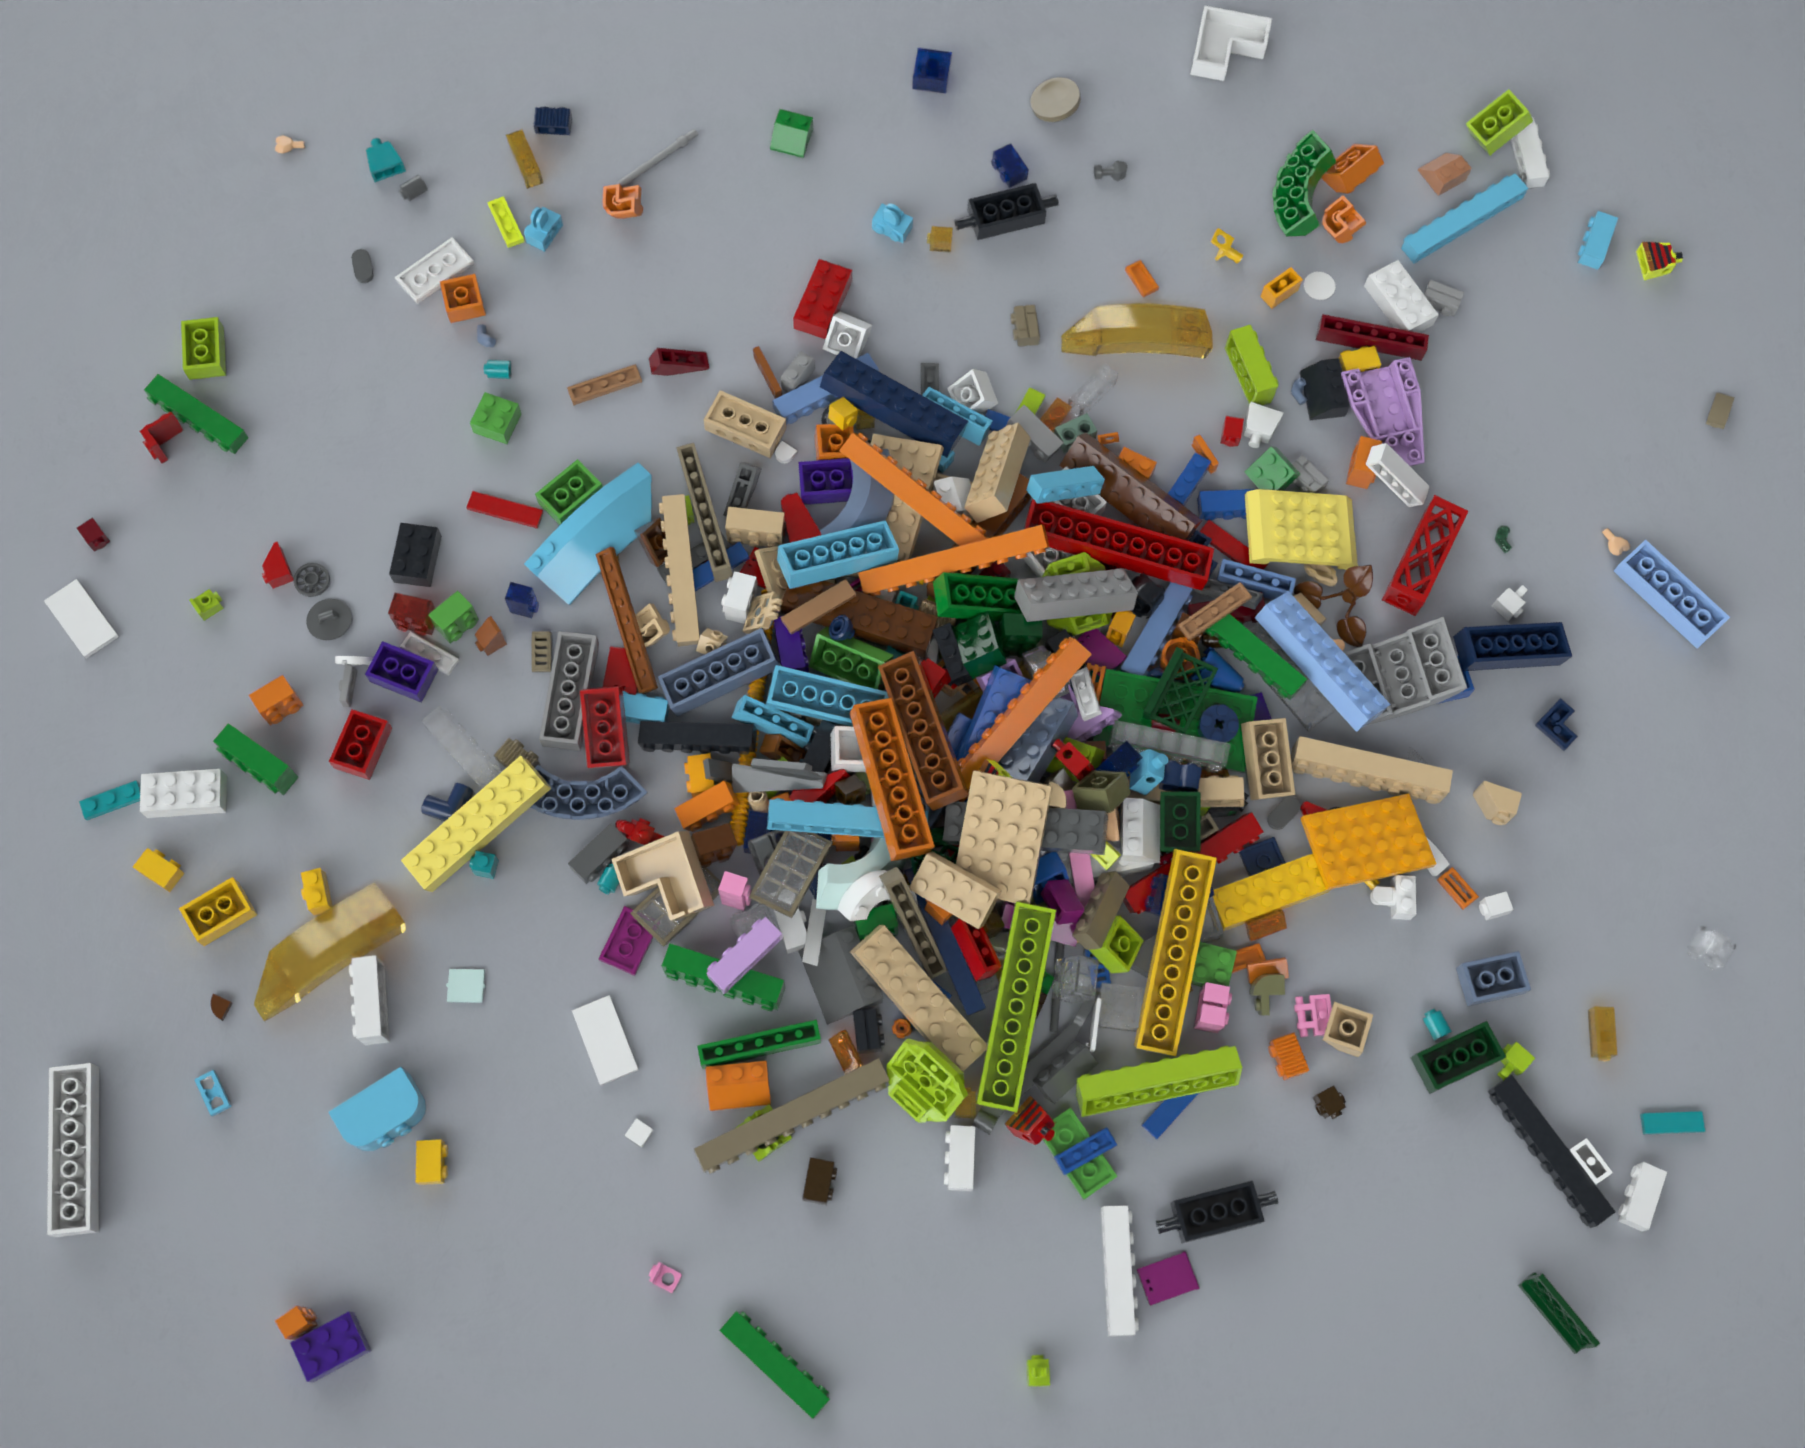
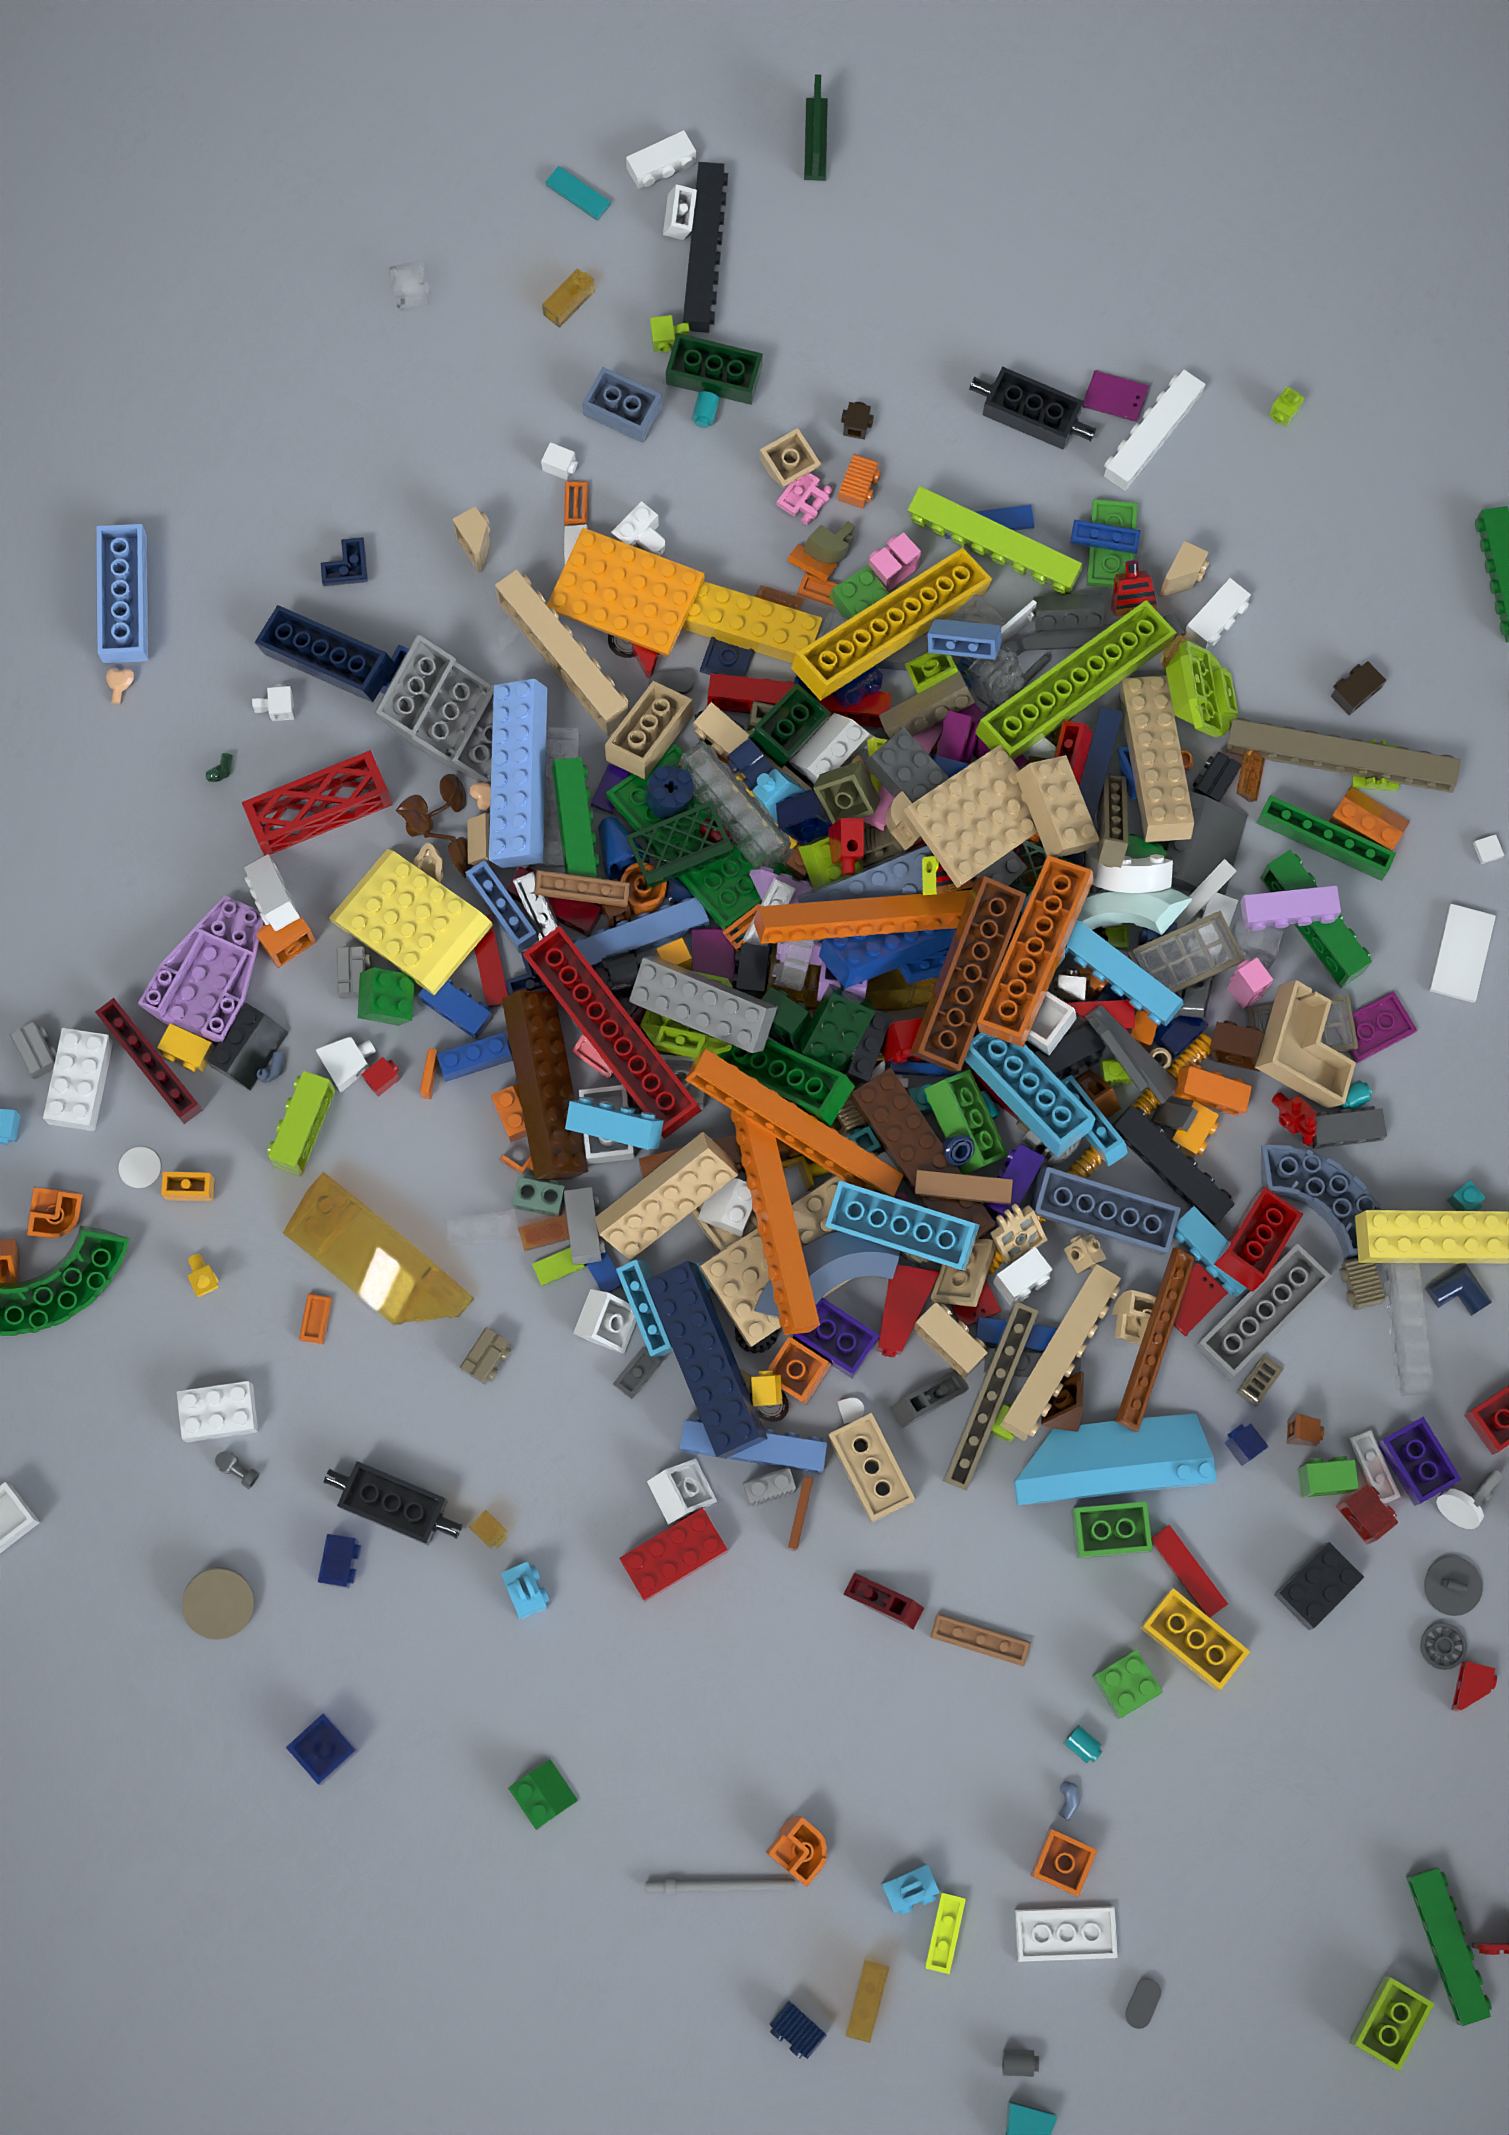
camera: 140 degrees left, 5 degrees up
(471, 468) = (1194, 1639): none -> yellow brick
(1010, 1169) = (1186, 570): none -> tan slope
(1117, 977) = (964, 639): none -> medium blue brick
(1148, 189) = (217, 1411): none -> white brick

